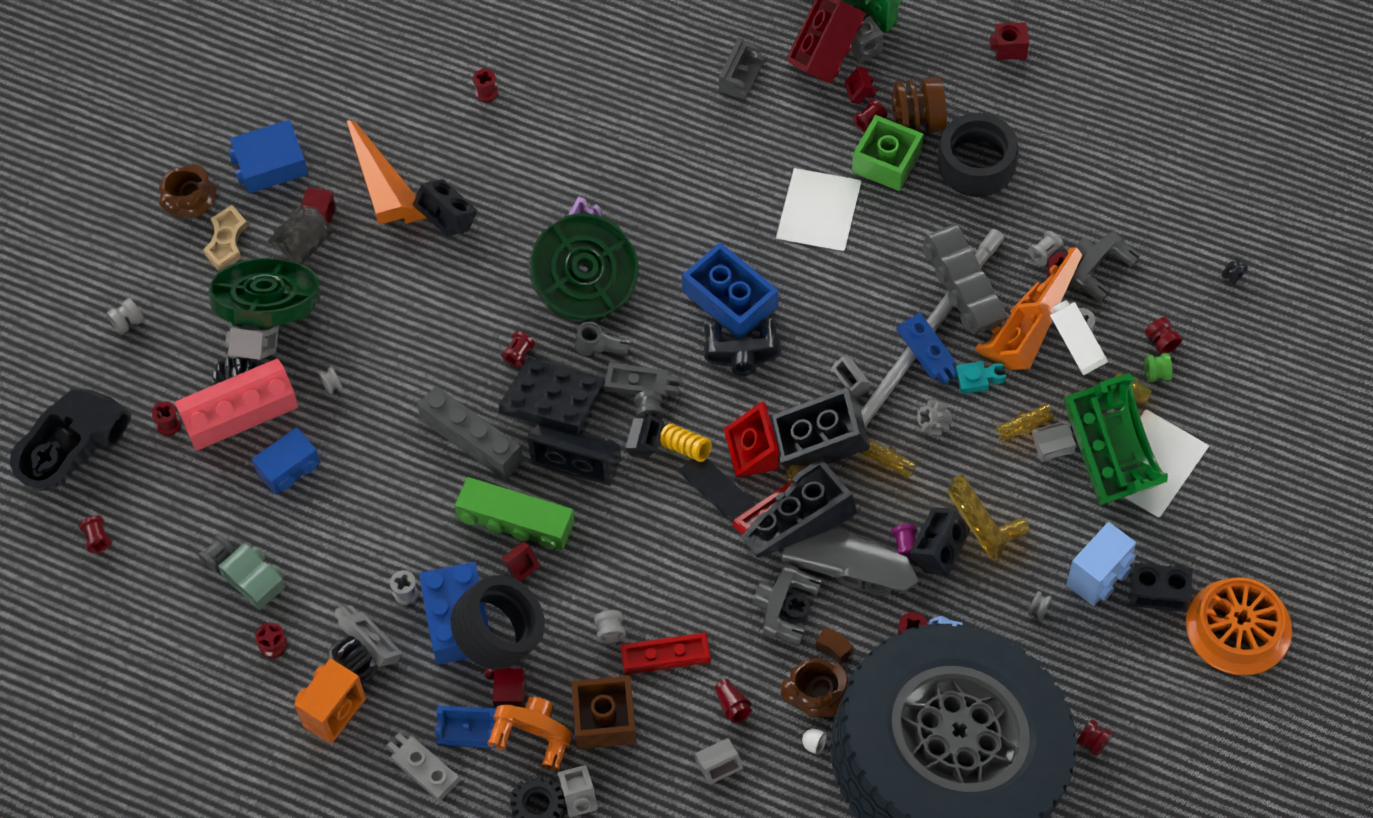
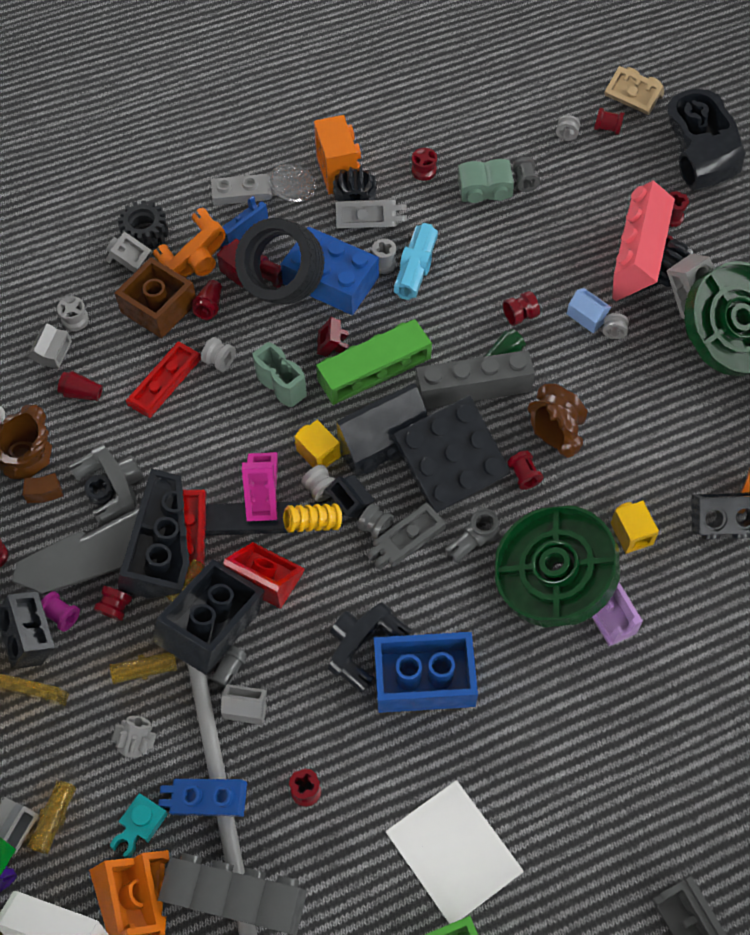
camera: 130 degrees right, 0 degrees up
(36, 540) = (634, 90): none -> tan bracket
(130, 560) = (568, 134): none -> light grey bush
(286, 461) = (565, 255): blue brick -> none
(329, 407) = (588, 310): none -> light blue piece
(370, 453) = (521, 308): none -> dark red wheel
(383, 729) = (292, 182): none -> clear wheel
(386, 561) = (415, 261): none -> medium azure piece
(419, 438) = (507, 343): none -> dark green cone
(460, 350) = (557, 418): none -> reddish brown piece
(503, 255) = (634, 526): none -> yellow brick
(561, 684) = (207, 301): none -> dark red cone
(590, 560) = (279, 374): none -> sand green brick
(624, 491) = (317, 445): none -> yellow brick
(652, 464) = (317, 481): none -> light grey wheel
(673, 765) = (72, 313): none -> light grey wheel
(689, 495) = (260, 486): none -> dark pink bracket
(865, 302) = (301, 778): none -> dark red bush
(868, 512) = (113, 603): none -> dark red wheel

